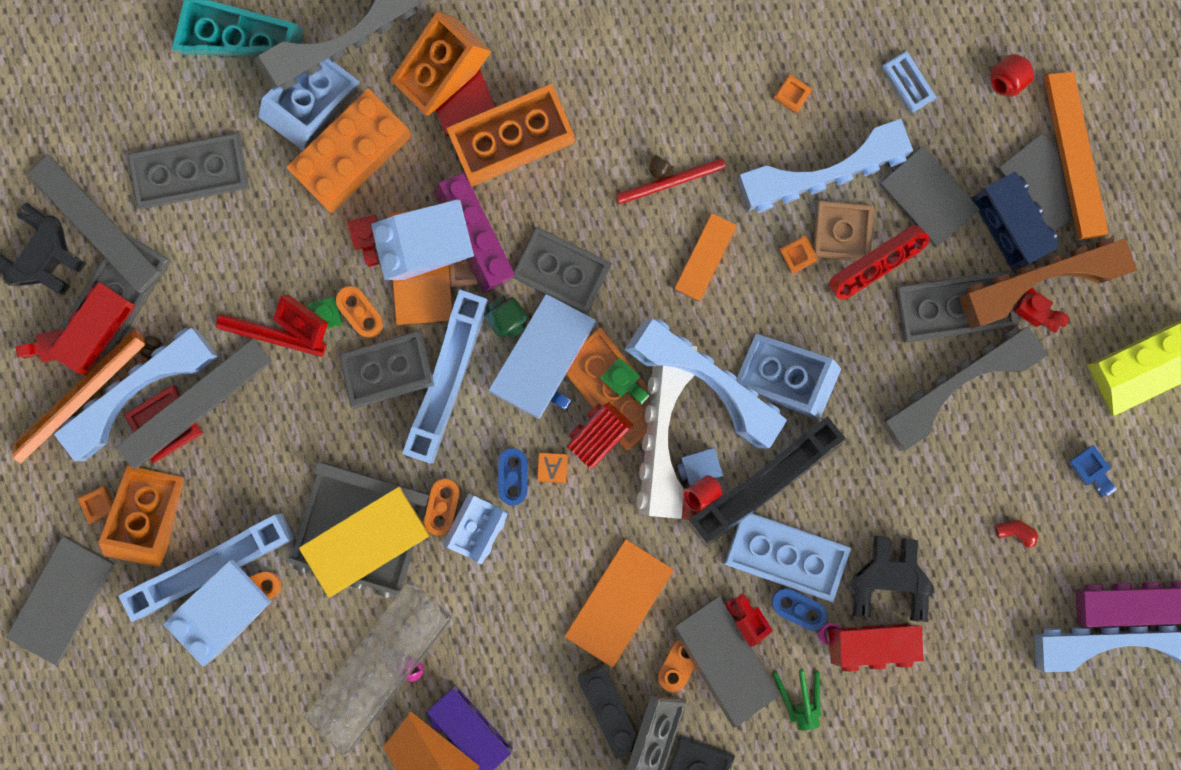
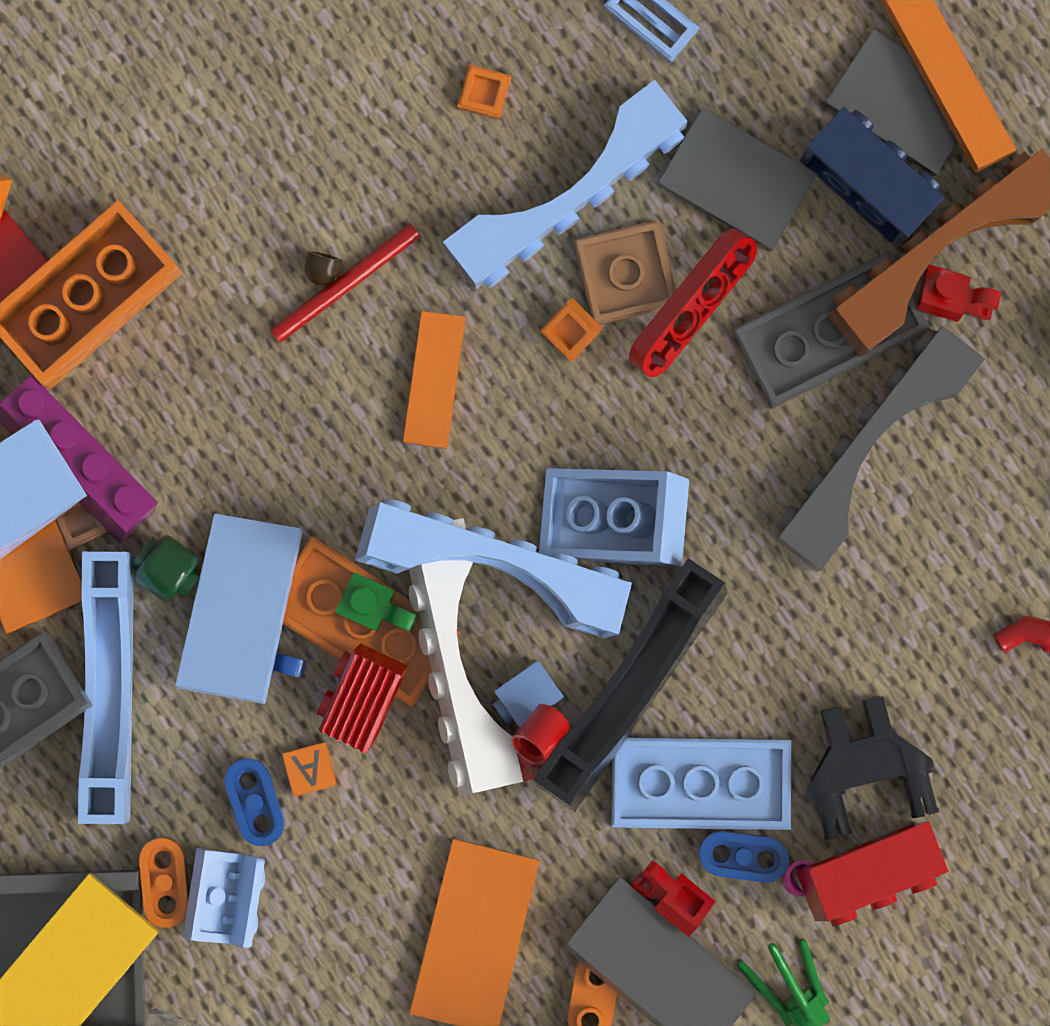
camera: 20 degrees left, 0 degrees up
(561, 270) = (226, 470): dark grey tile -> none

